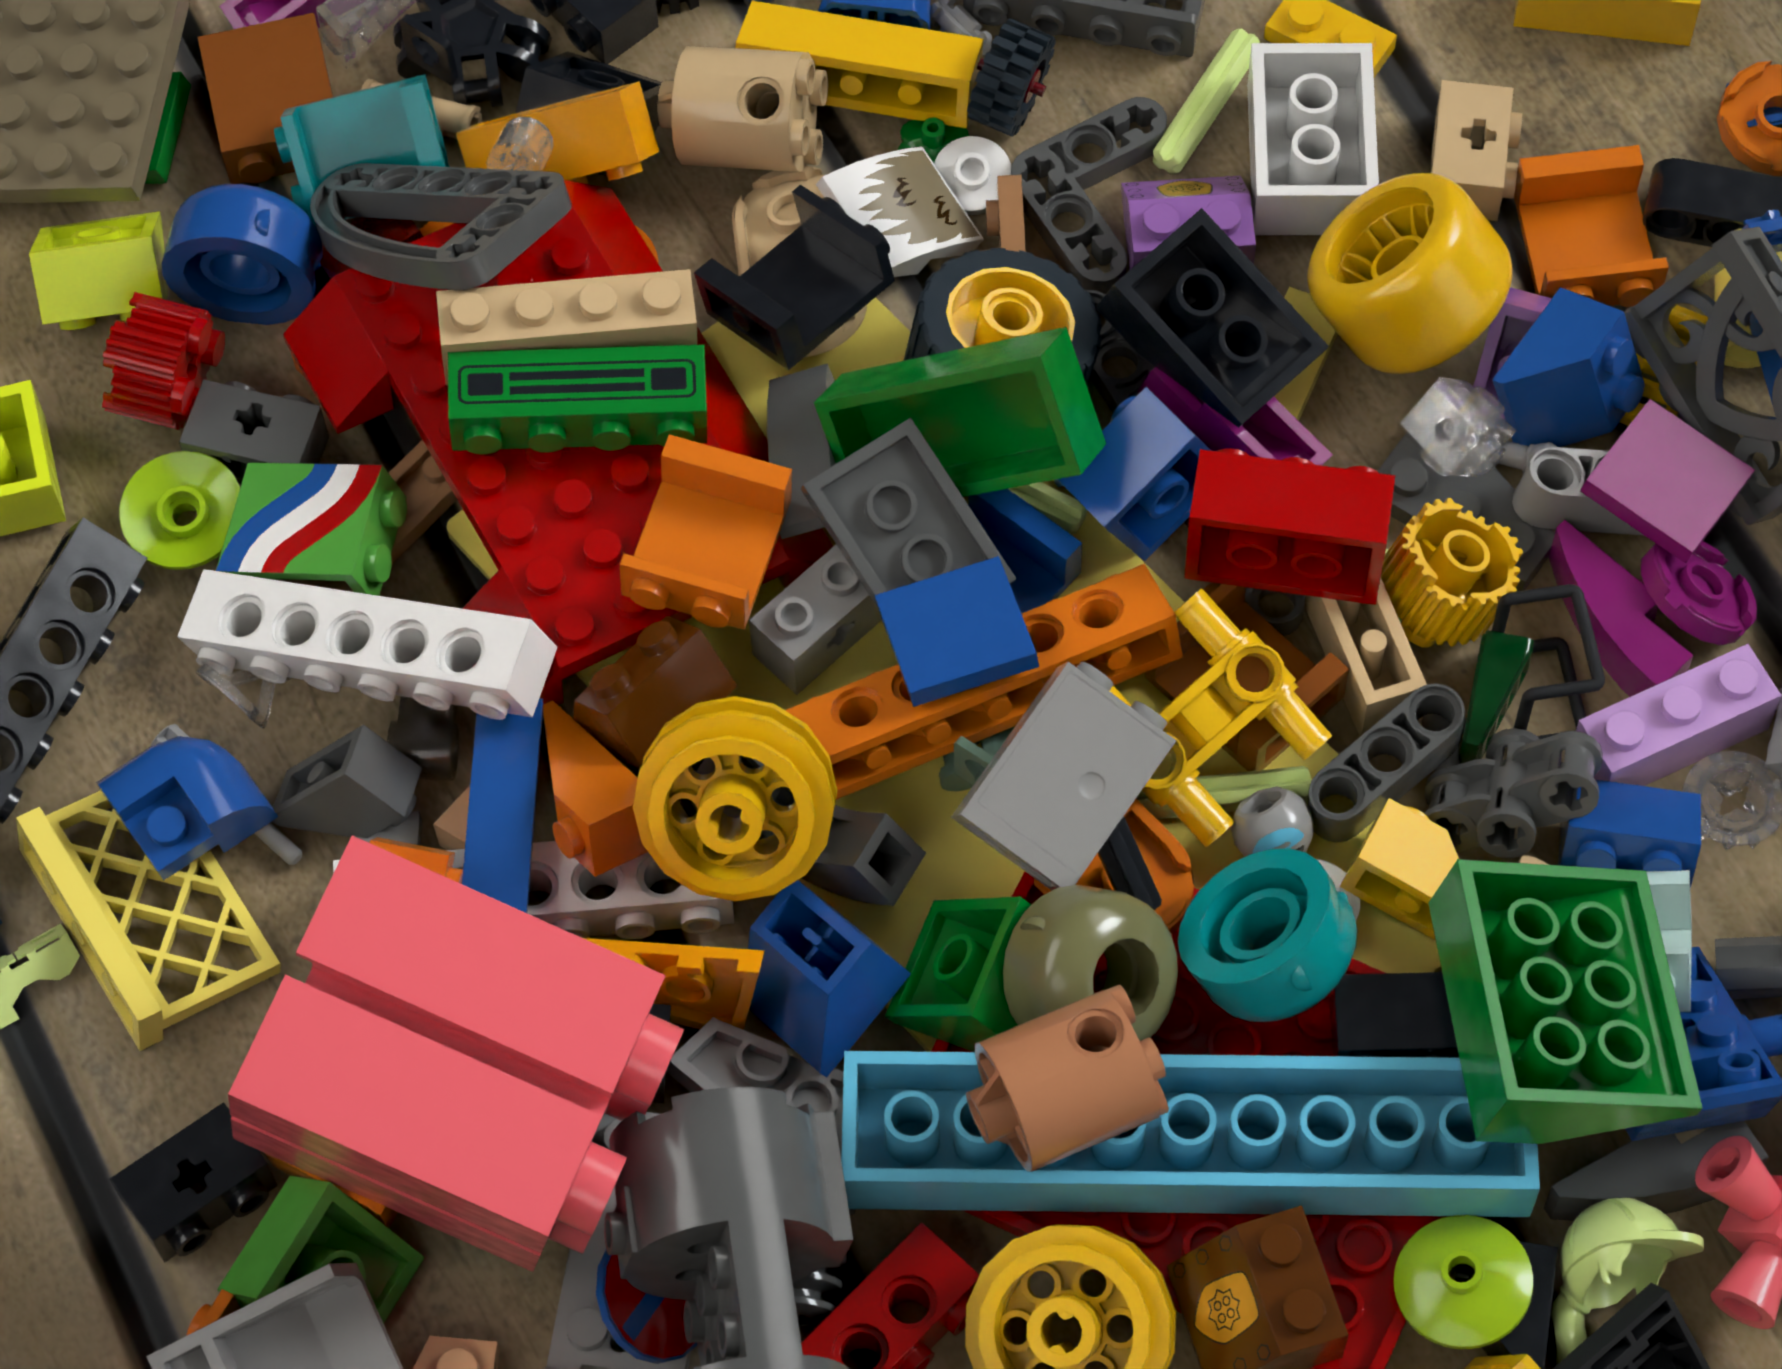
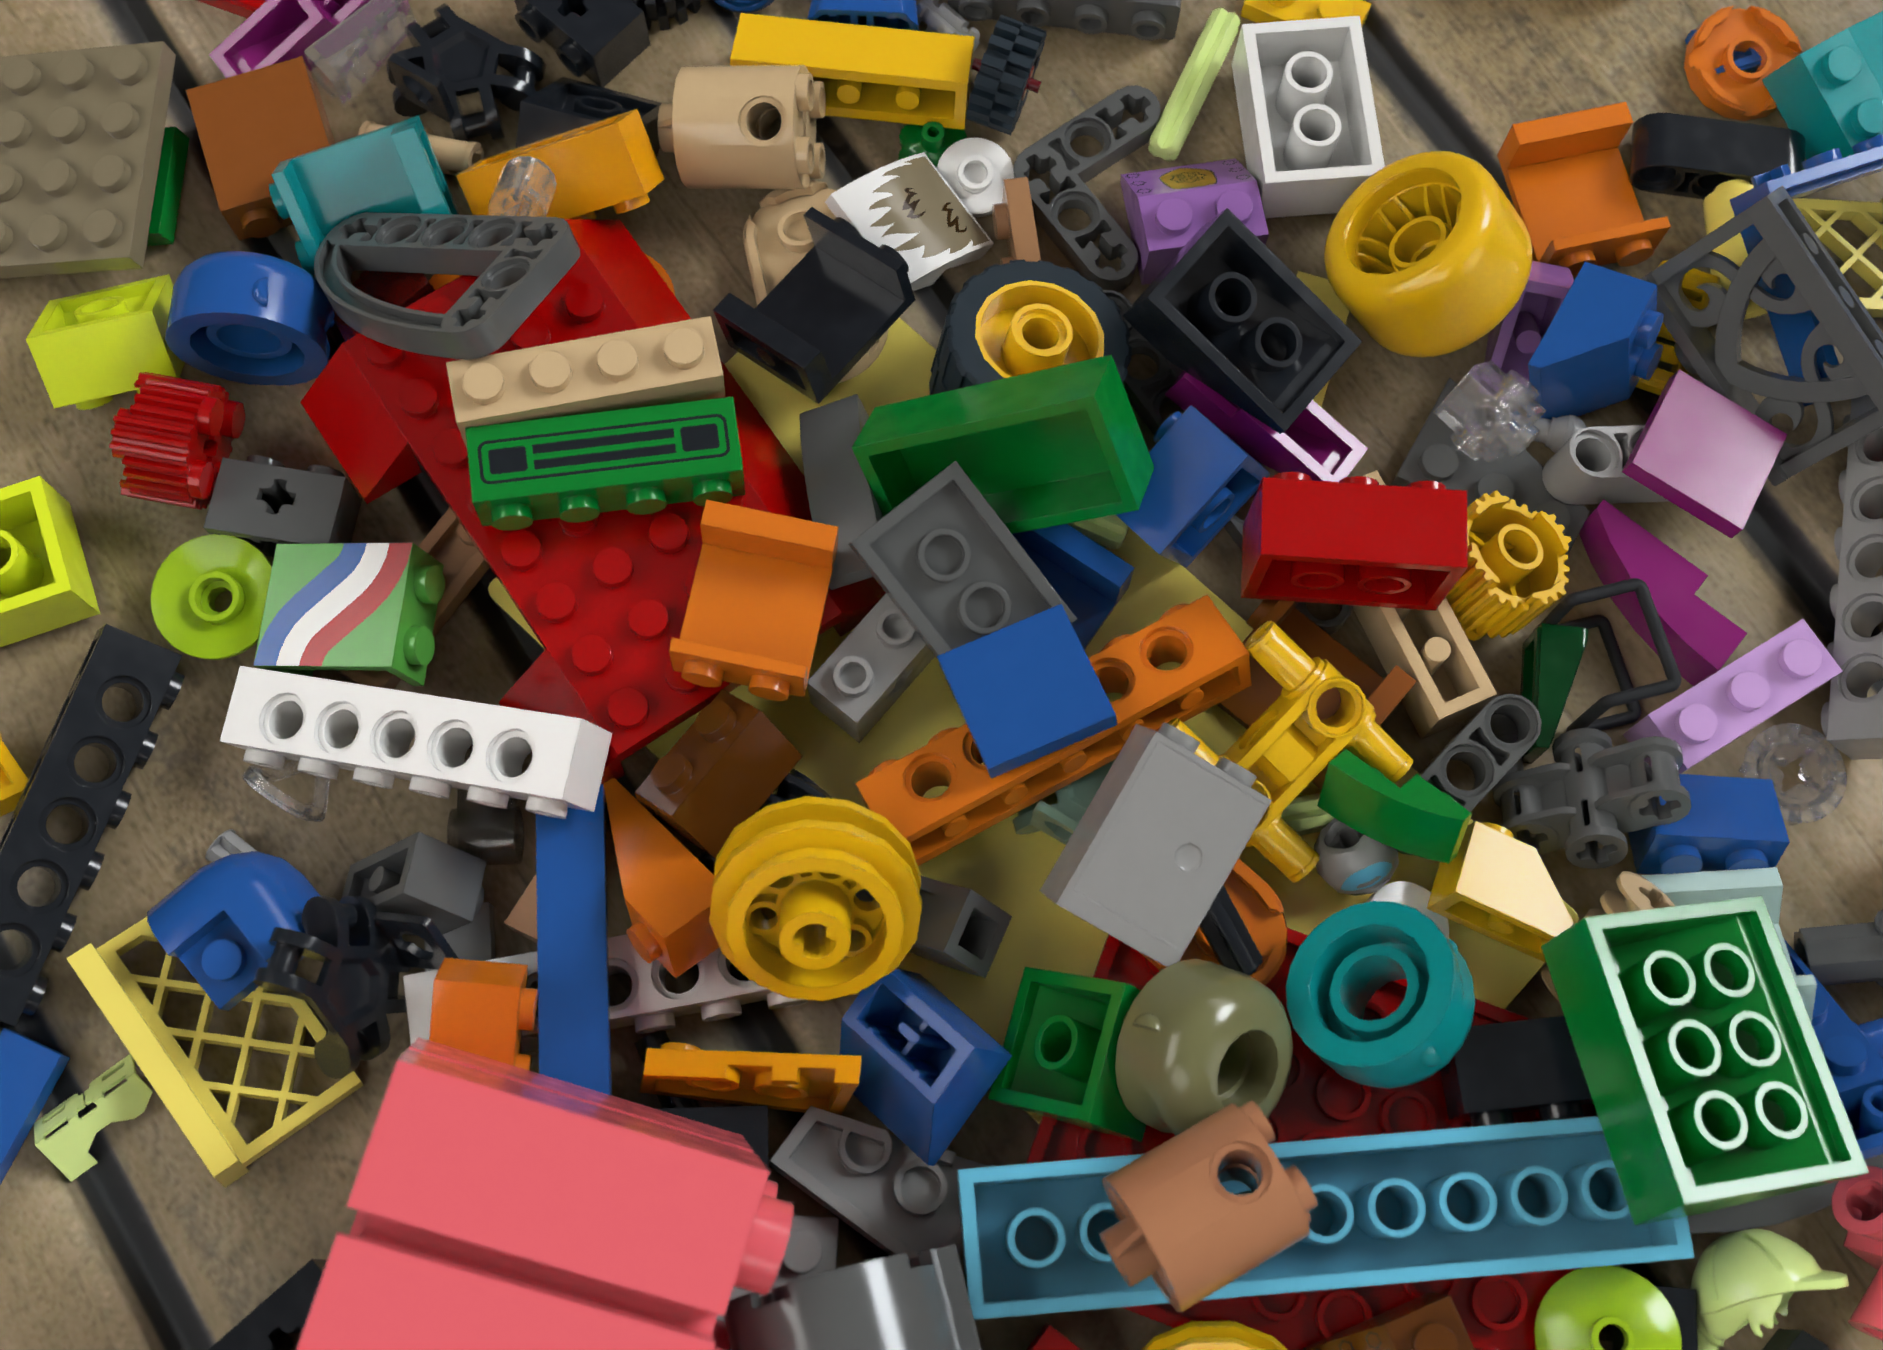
camera: 10 degrees left, 10 degrees up
(291, 852) = (356, 980): none -> black piece
(1311, 780) = (1407, 817): none -> green slope
(1473, 142) = (1460, 105): tan brick -> none
(1700, 594) = (1740, 569): magenta tile -> none

